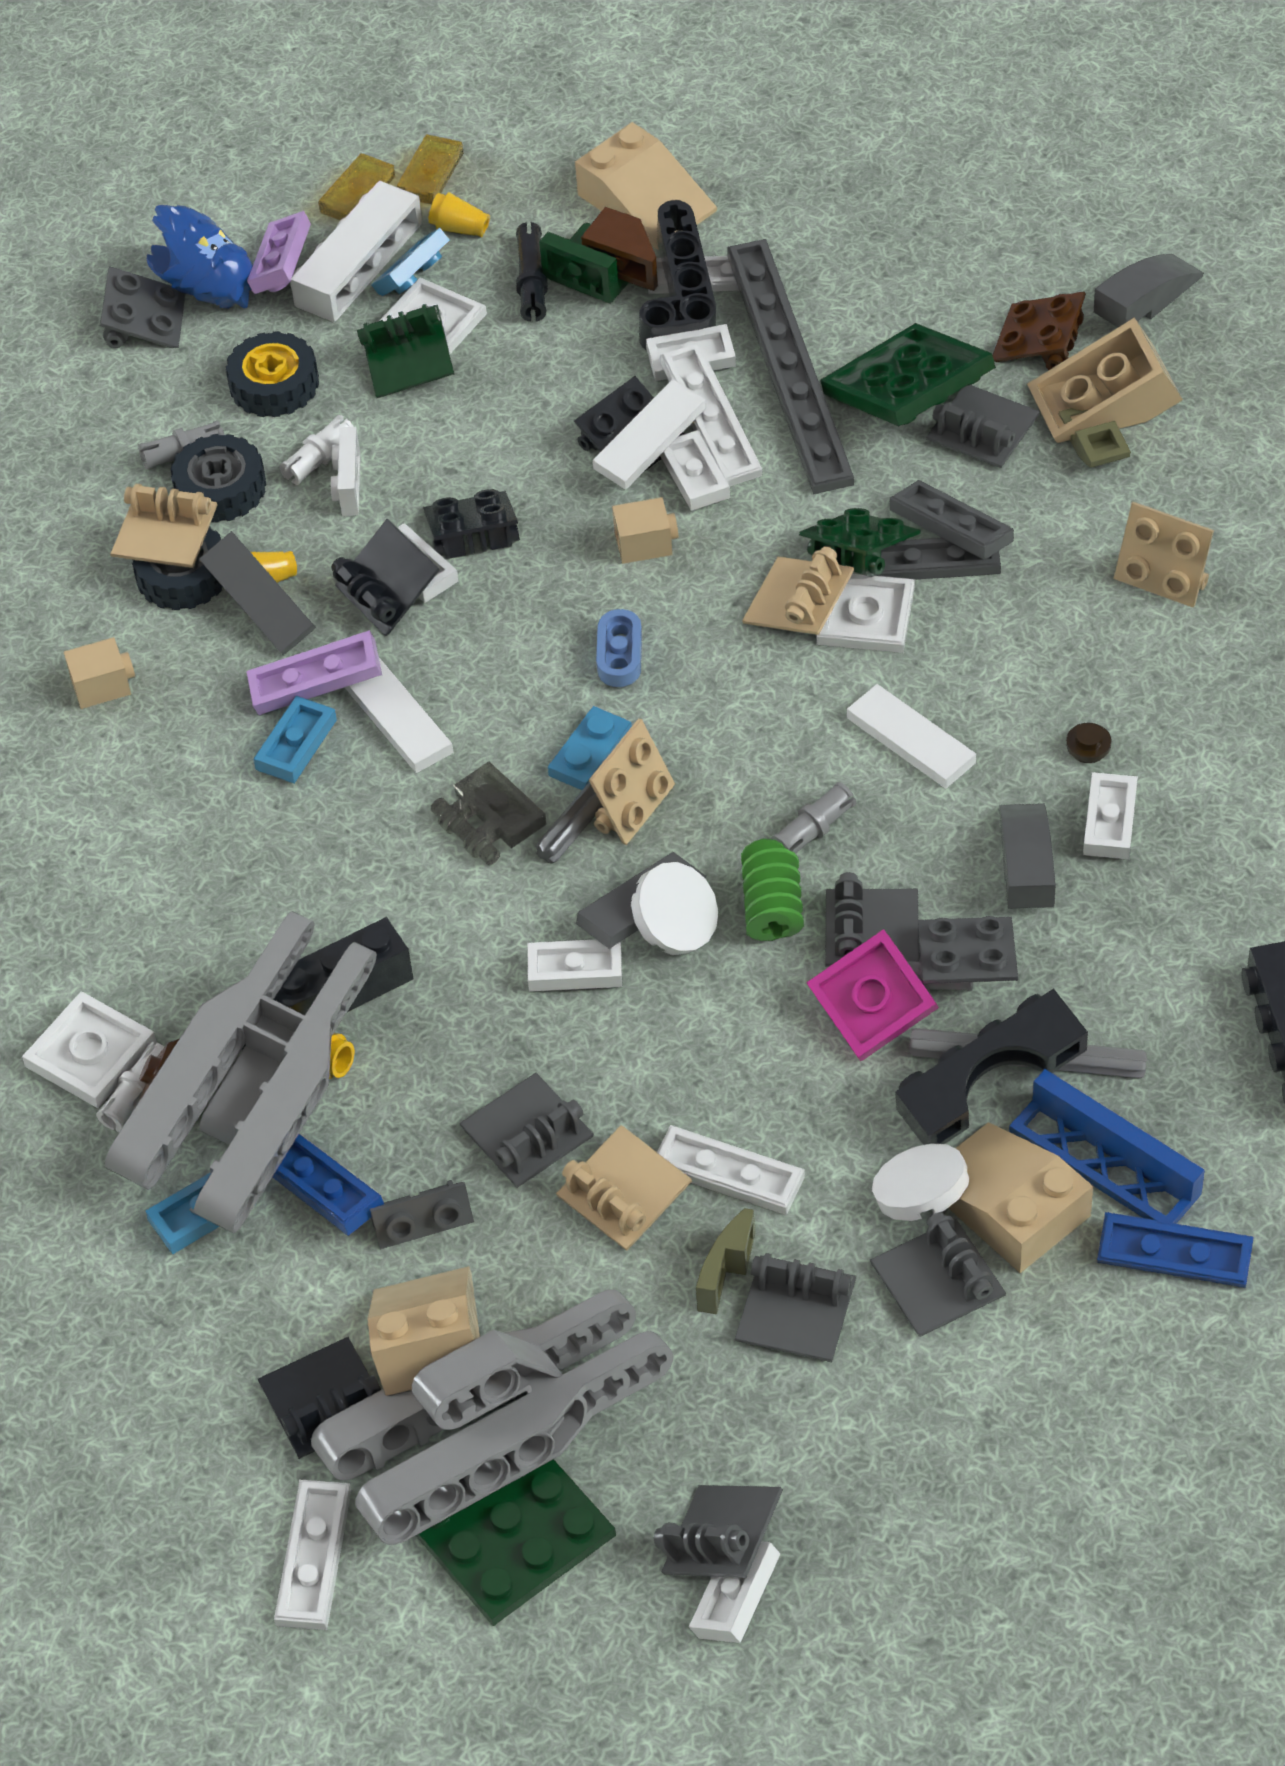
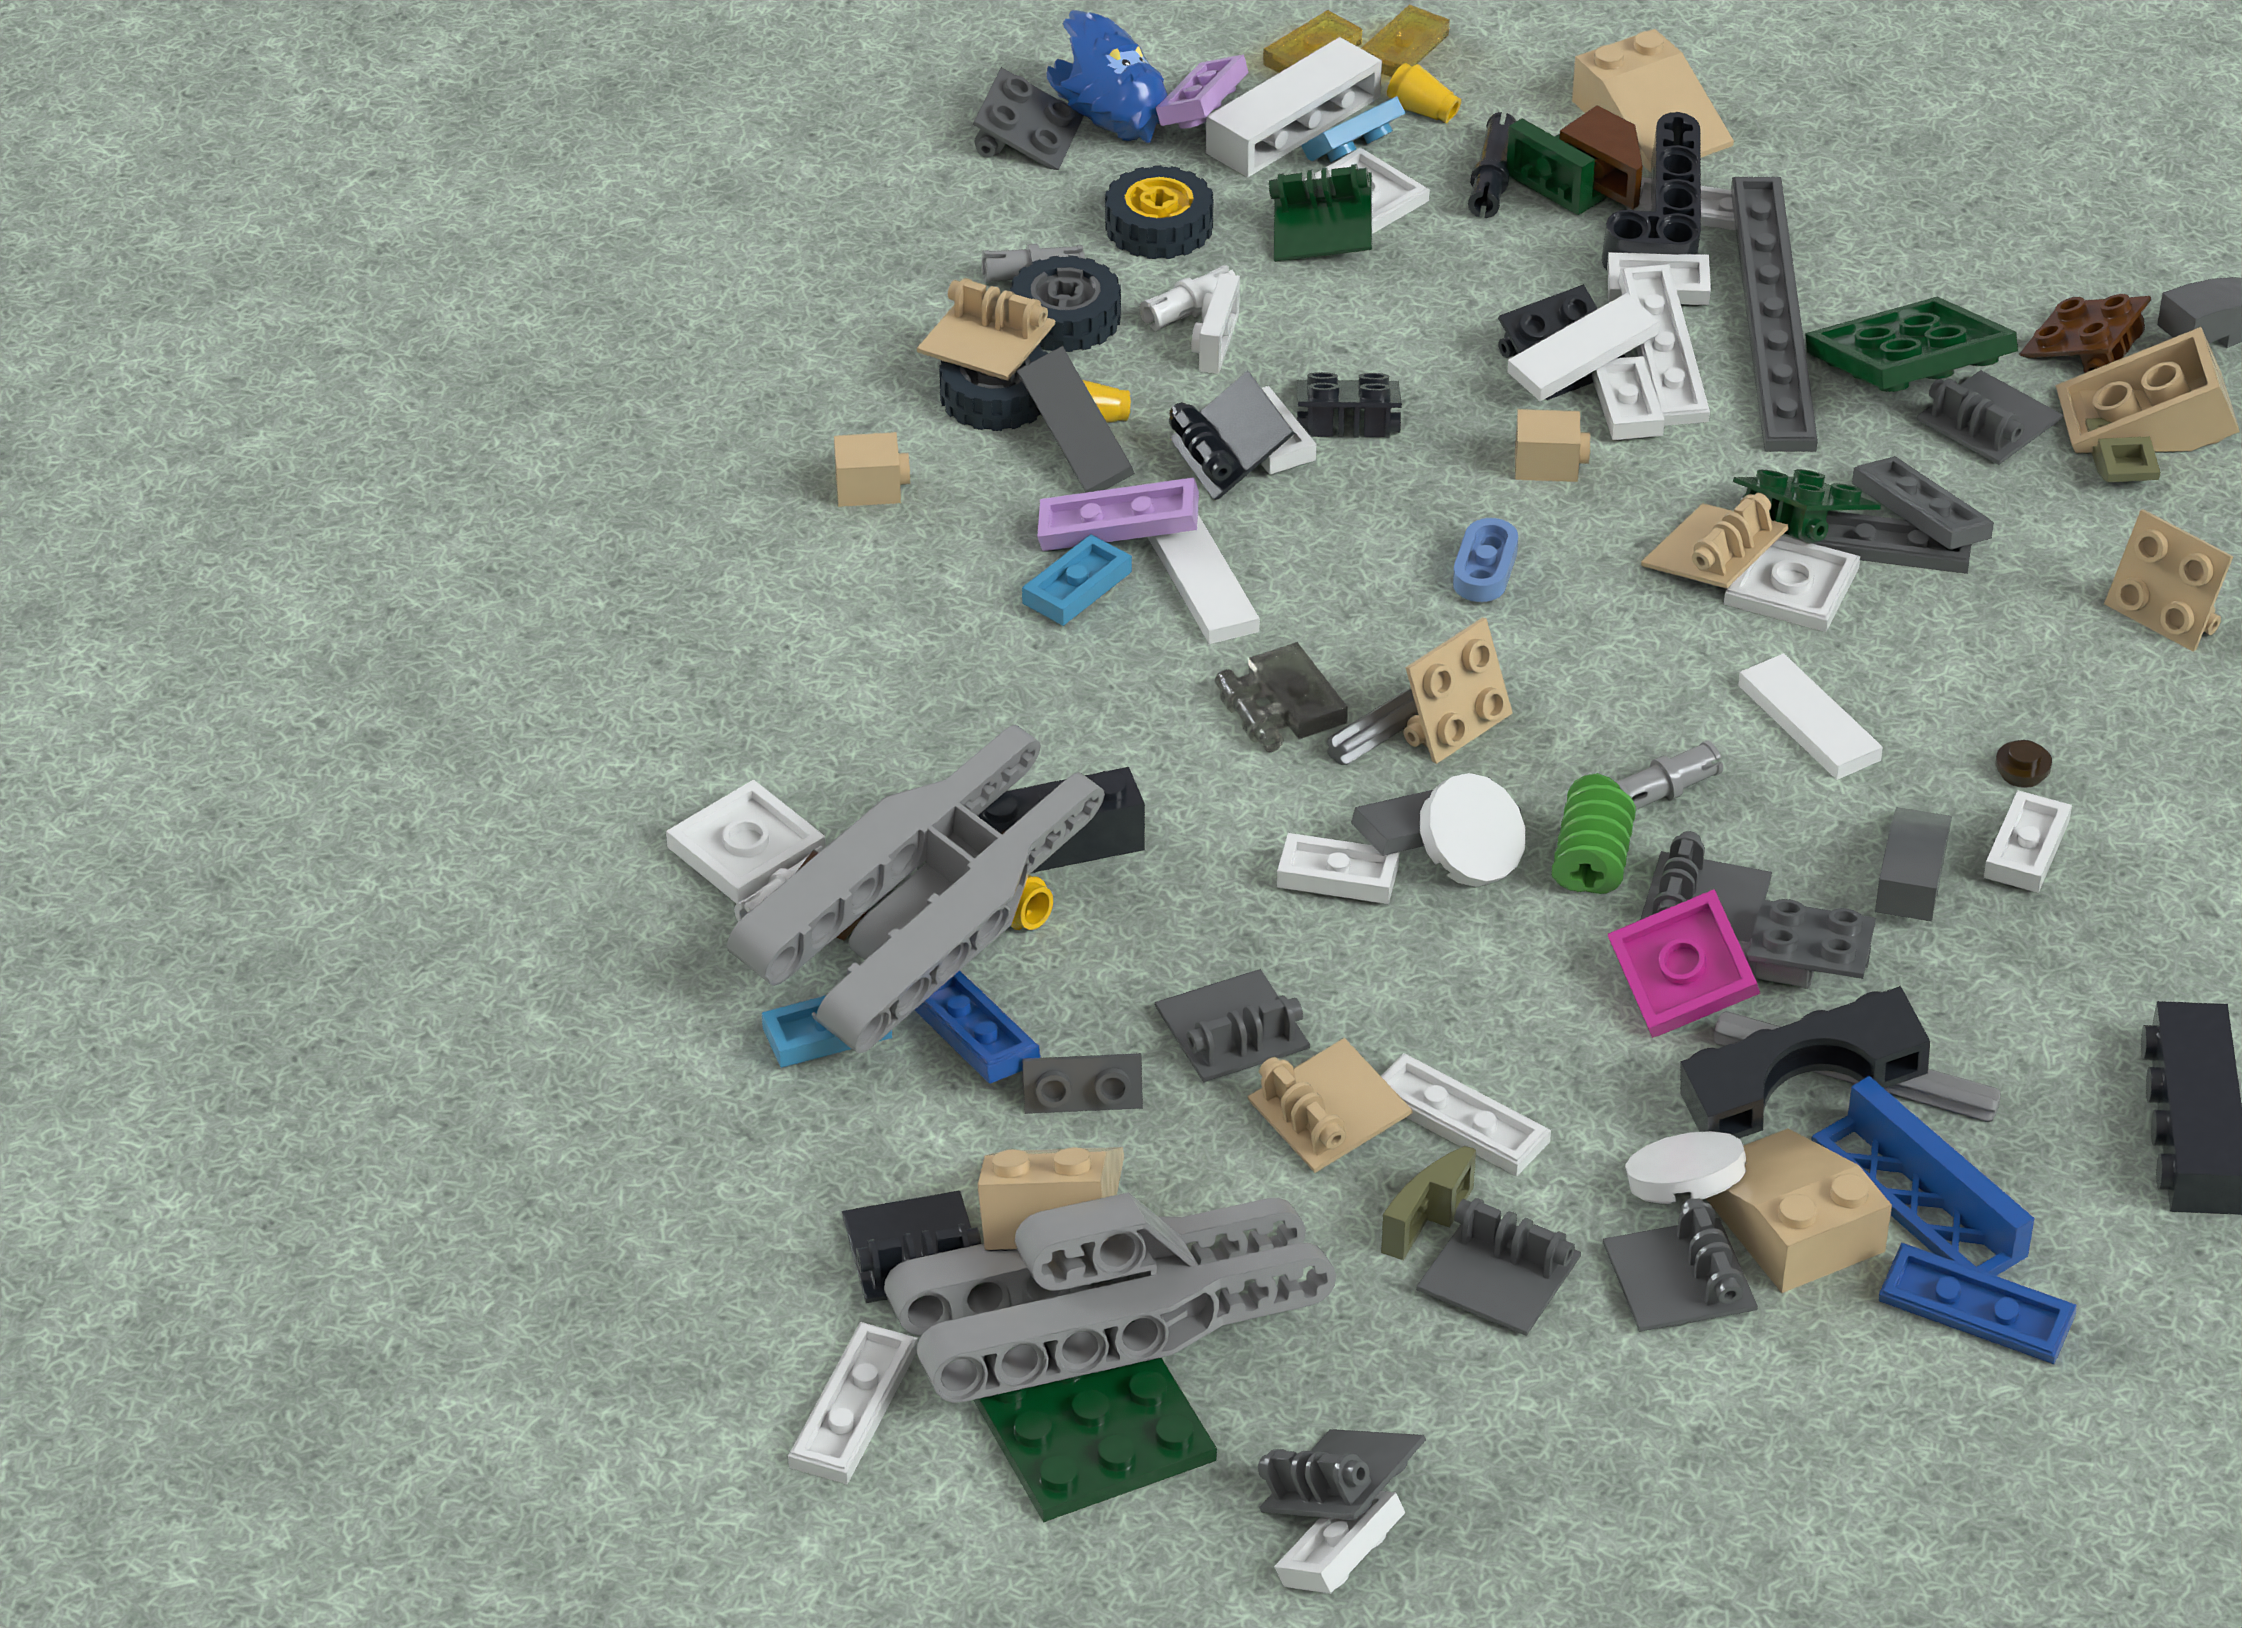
camera: 10 degrees right, 10 degrees down
(588, 747) = (1388, 666): dark azure plate -> none

